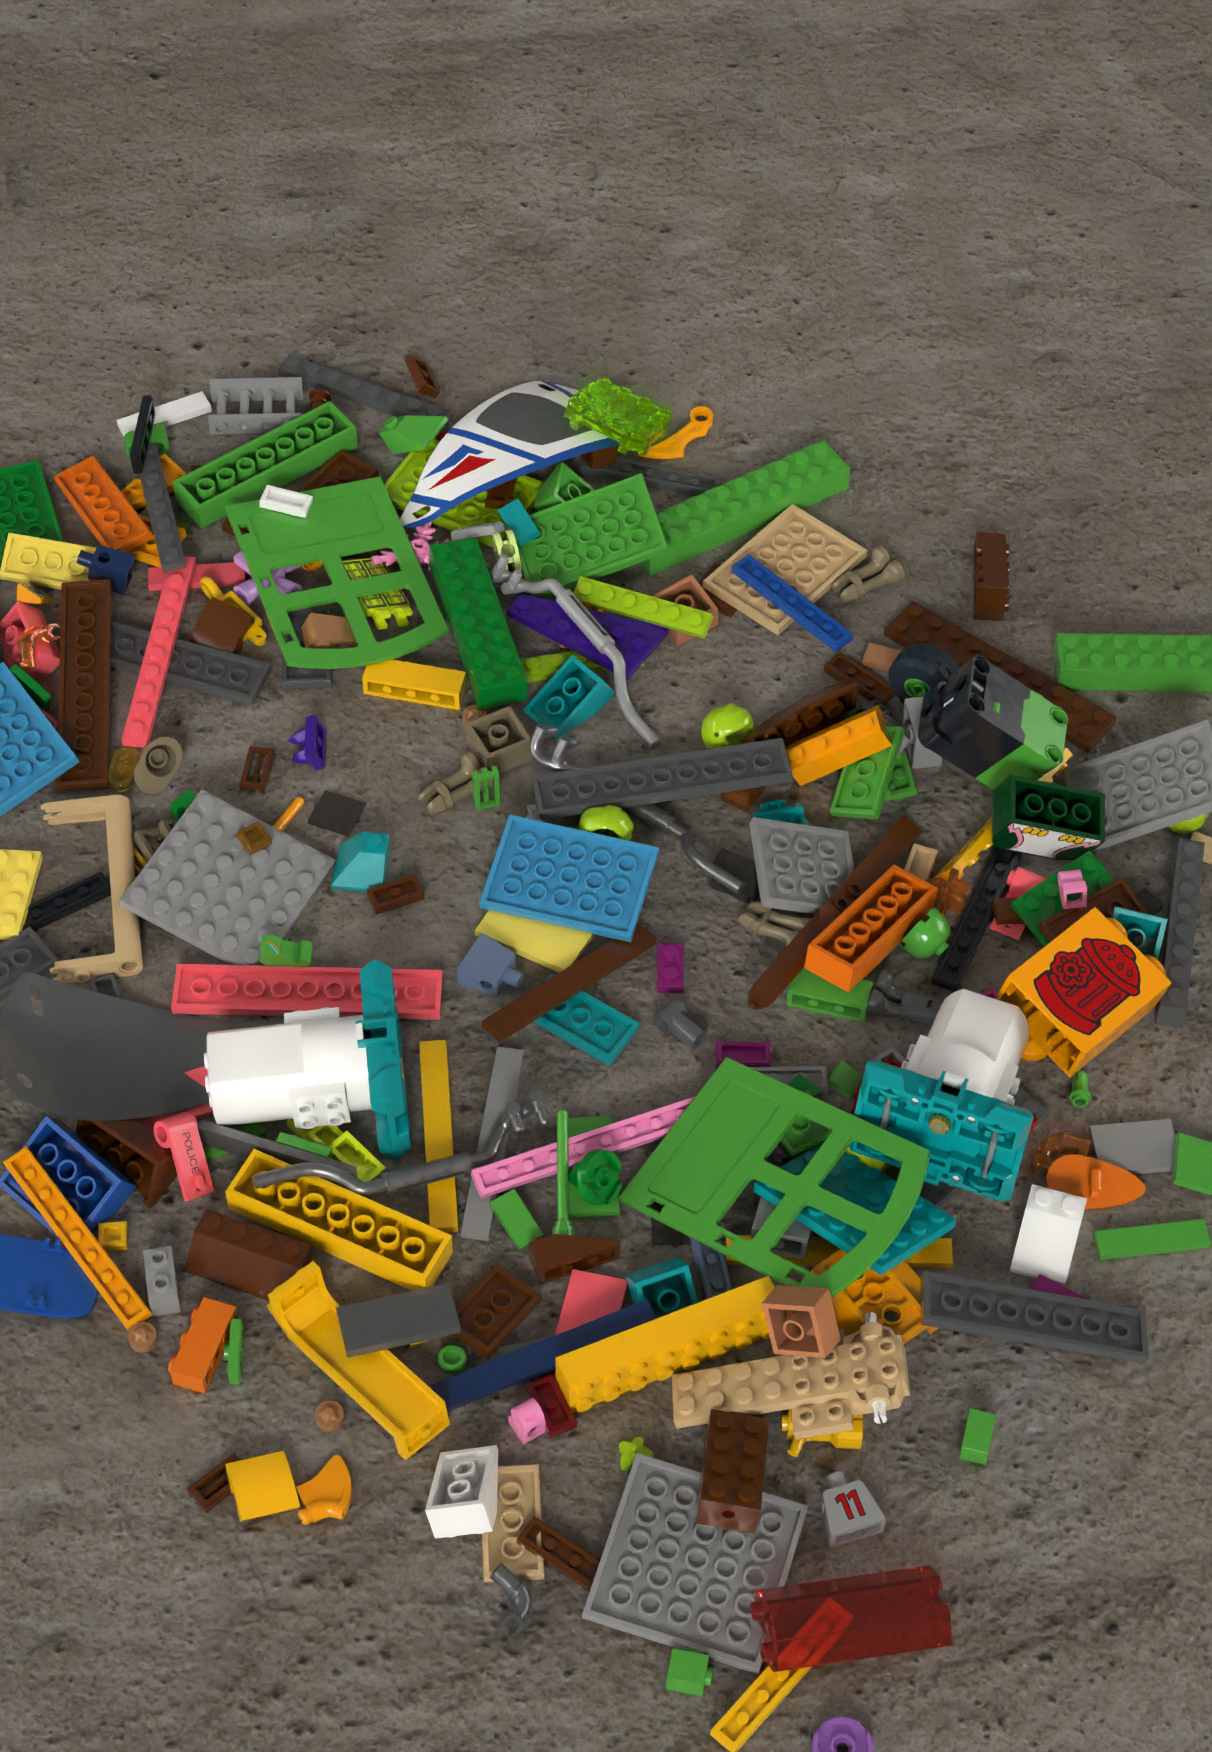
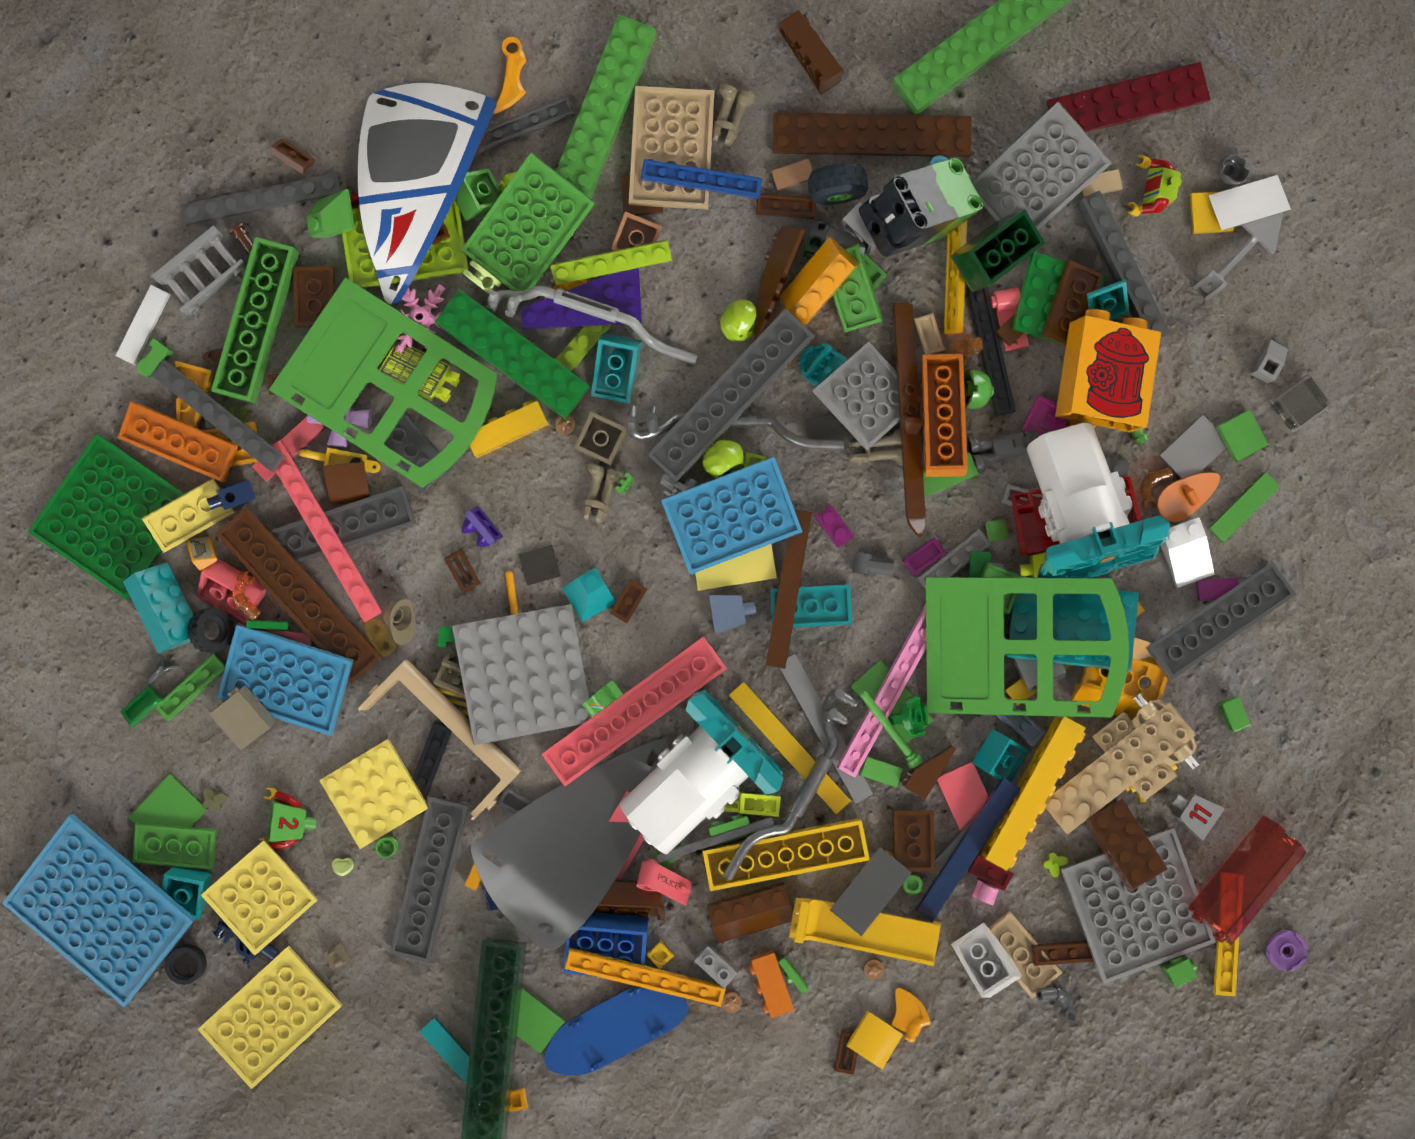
camera: 35 degrees left, 35 degrees up
(142, 434) = (154, 366): black tile -> none
(254, 838) = (515, 635): pearl gold tile -> none
(286, 501) = (305, 353): white tile -> none
(327, 632) = (423, 438): medium nougat brick -> none
(477, 530) = (449, 276): light grey tile -> none
(519, 522) = (471, 247): teal tile -> none
(618, 415) = (463, 99): clear neon green plate -> none
(801, 1321) = (1108, 736): nougat brick -> none
(1072, 883) = (1048, 296): bright pink leg -> none

